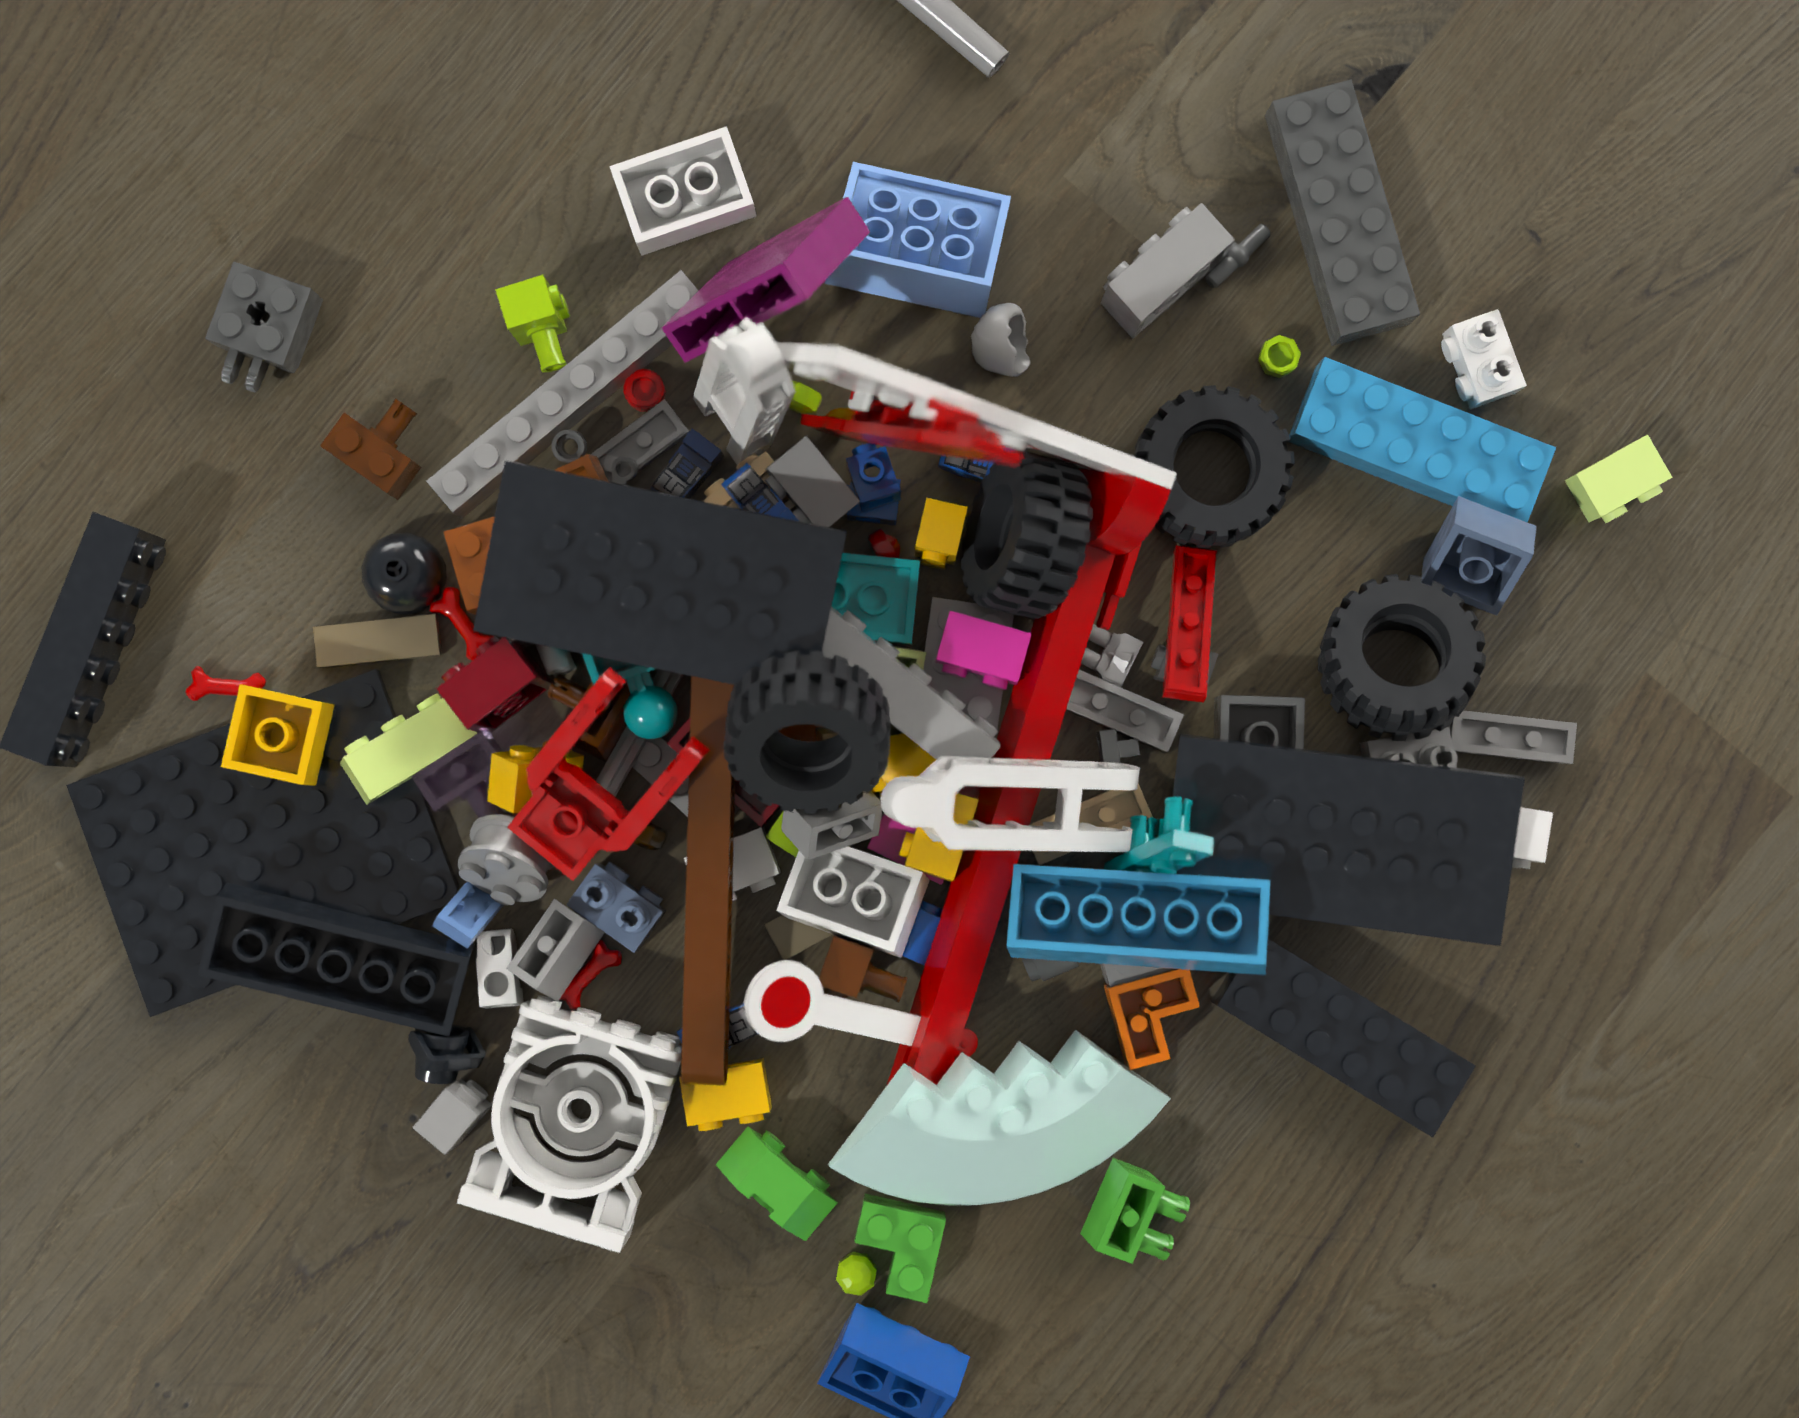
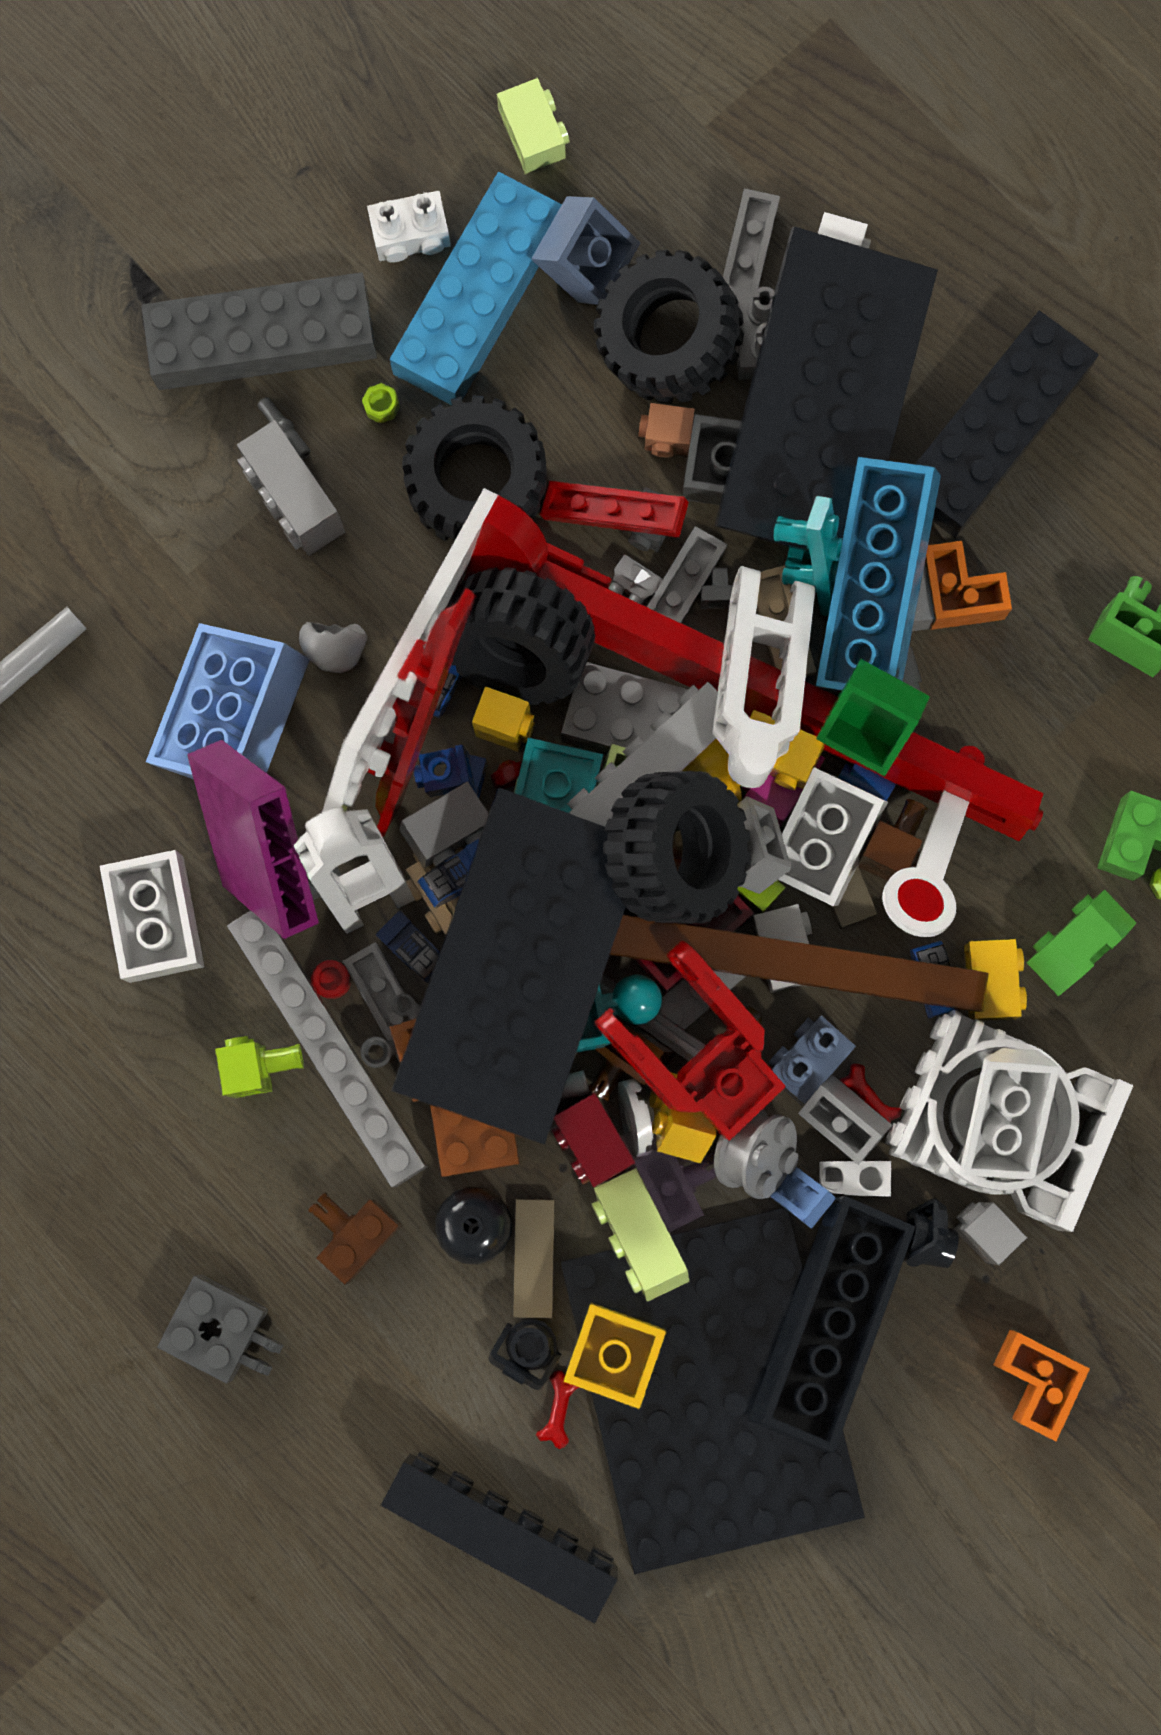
camera: 75 degrees left, 5 degrees down
(284, 648) = (530, 1347): none -> black piece
(308, 1196) = (1051, 1381): none -> orange brick
(451, 608) = (512, 1184): red piece -> none
(528, 727) = (635, 1118): none -> white tile
(568, 1122) = (1010, 1115): none -> white slope
(979, 929) = (873, 717): none -> green piece
(982, 649) = (616, 689): dark pink brick -> none
(1000, 1132) = (1055, 735): light aqua brick -> none
(1288, 670) = (667, 430): none -> nougat brick

